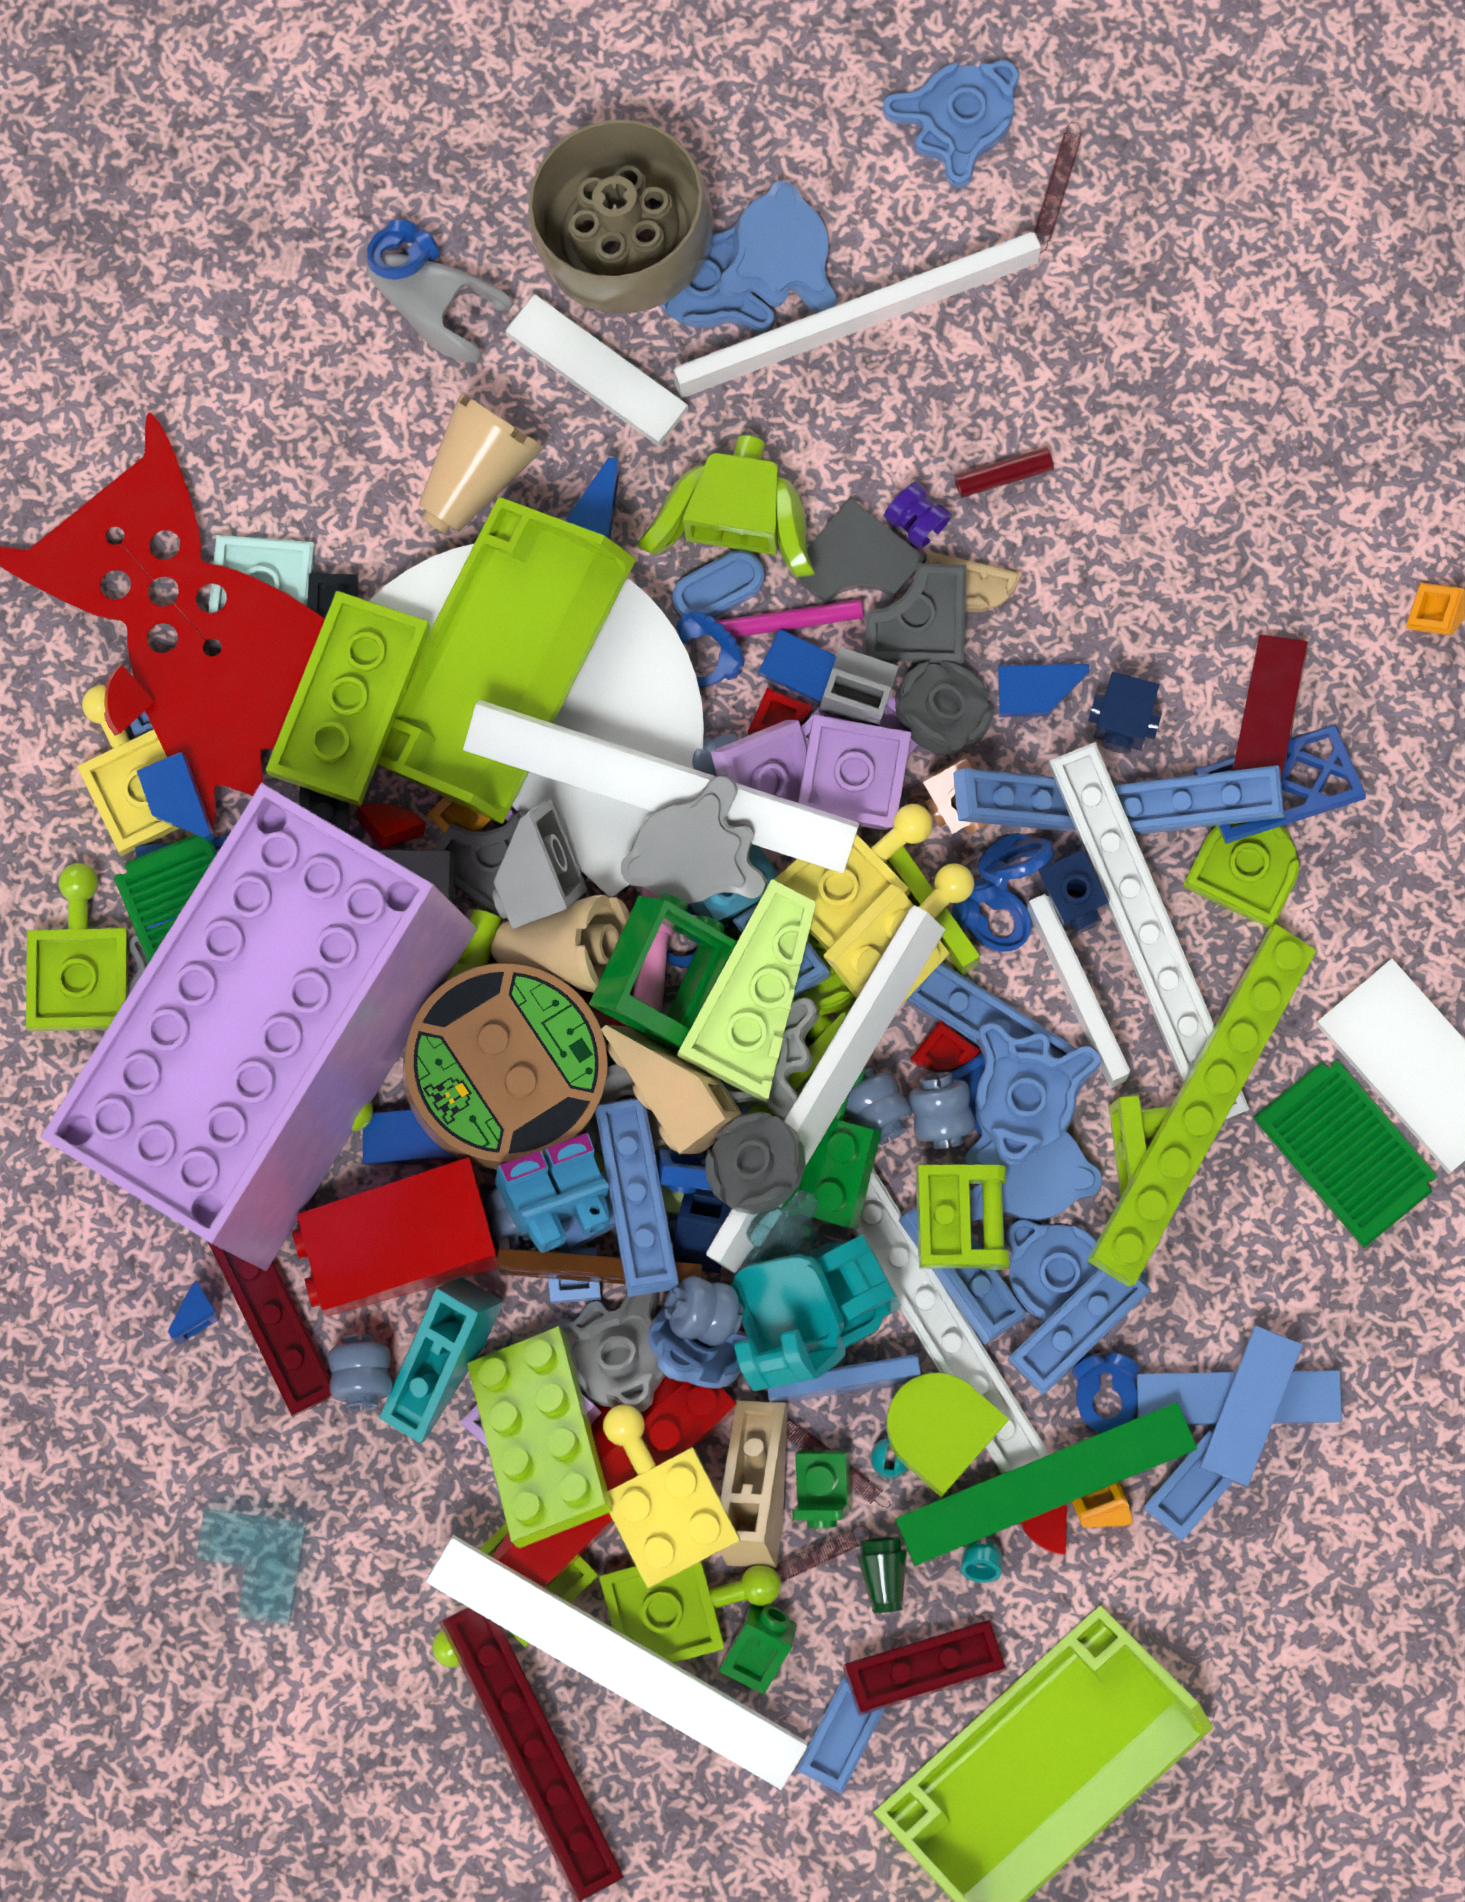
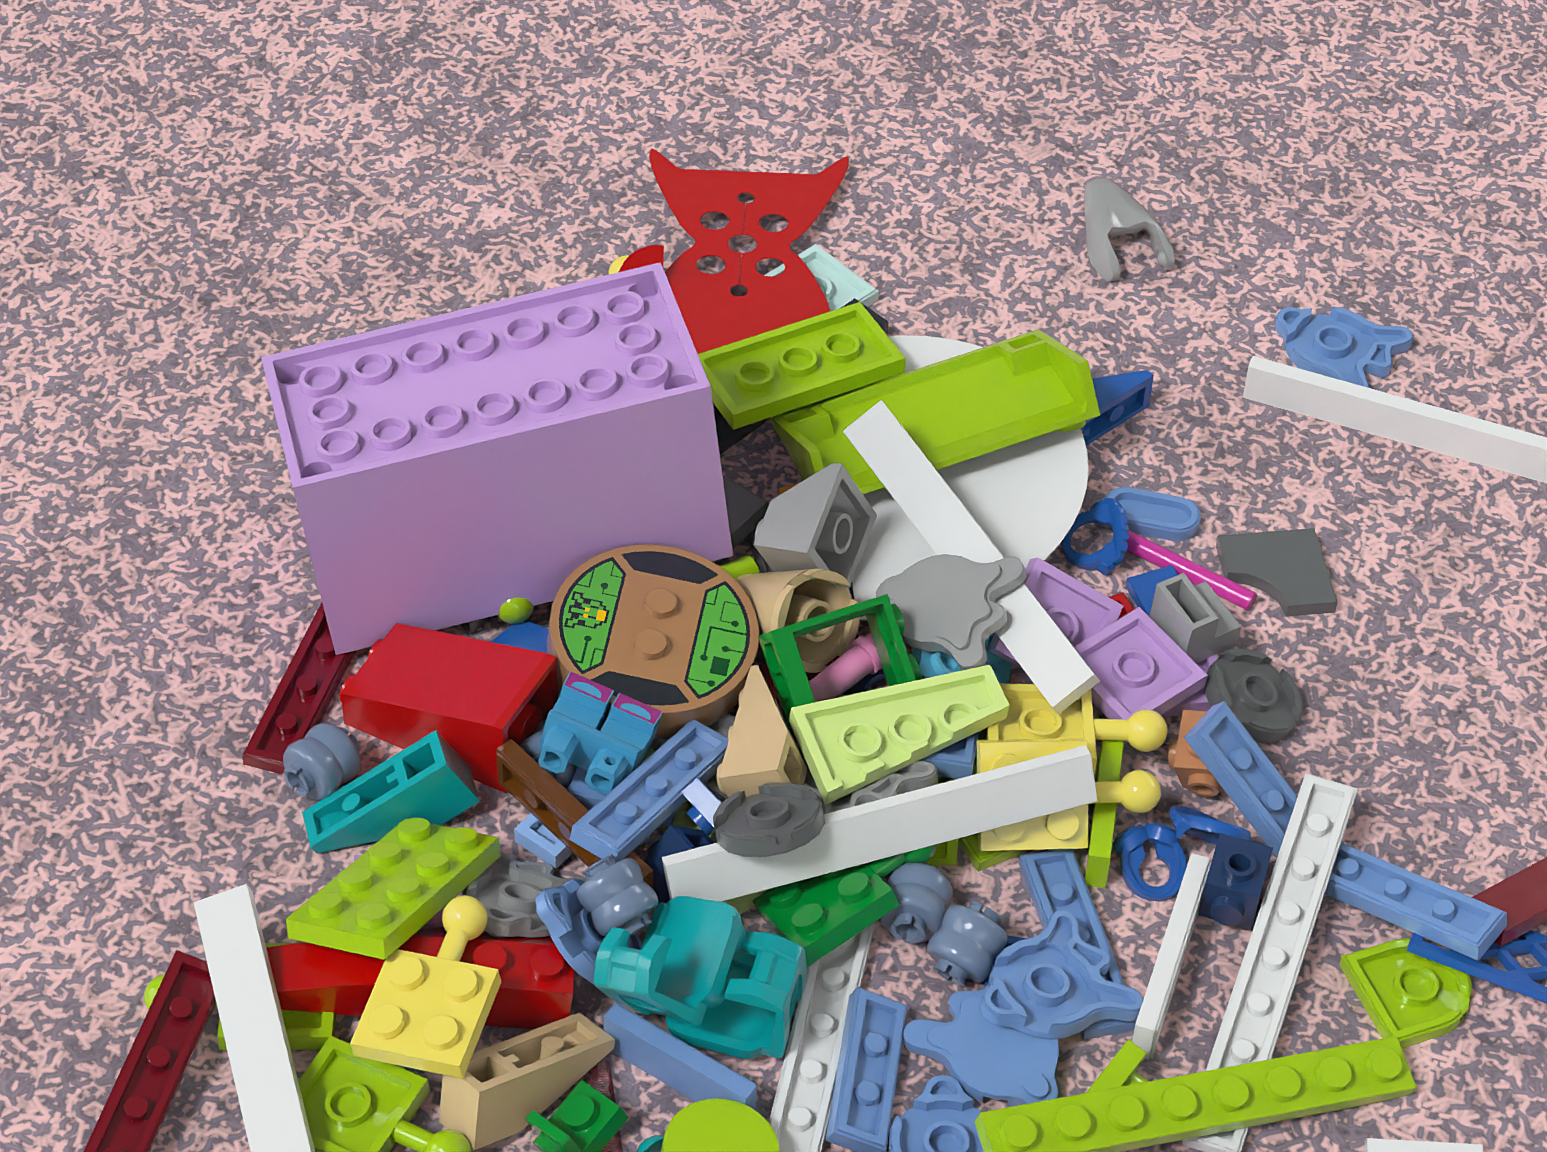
camera: 40 degrees right, 30 degrees down
(193, 1315) = (251, 637): blue slope -> none
(268, 1550) = (113, 824): clear light blue plate -> none
(390, 823) = (747, 472): red tile -> none
(396, 233) = (1134, 180): blue piece -> none
(473, 465) = (1053, 302): tan cone -> none
(596, 370) = (1196, 340): white tile -> none
(611, 167) = (1331, 244): dark tan wheel -> none
(734, 505) = (1208, 463): lime torso -> none
(780, 250) = (1408, 352): medium blue tile -> none
(783, 1230) = (756, 898): clear light blue plate -> none
(917, 514) = (1357, 569): dark purple wheel -> none
(925, 621) = (1299, 634): dark grey tile -> none
(943, 1050) = (1017, 914): red tile -> none
(945, 1216) = (889, 1004): lime plate -> none
(985, 585) = (1359, 647): tan tile -> none
(1004, 472) = (1458, 599): dark red piece -> none
(1036, 688) = (1346, 745): blue tile -> none
(1125, 713) = (1407, 805): dark blue brick -> none

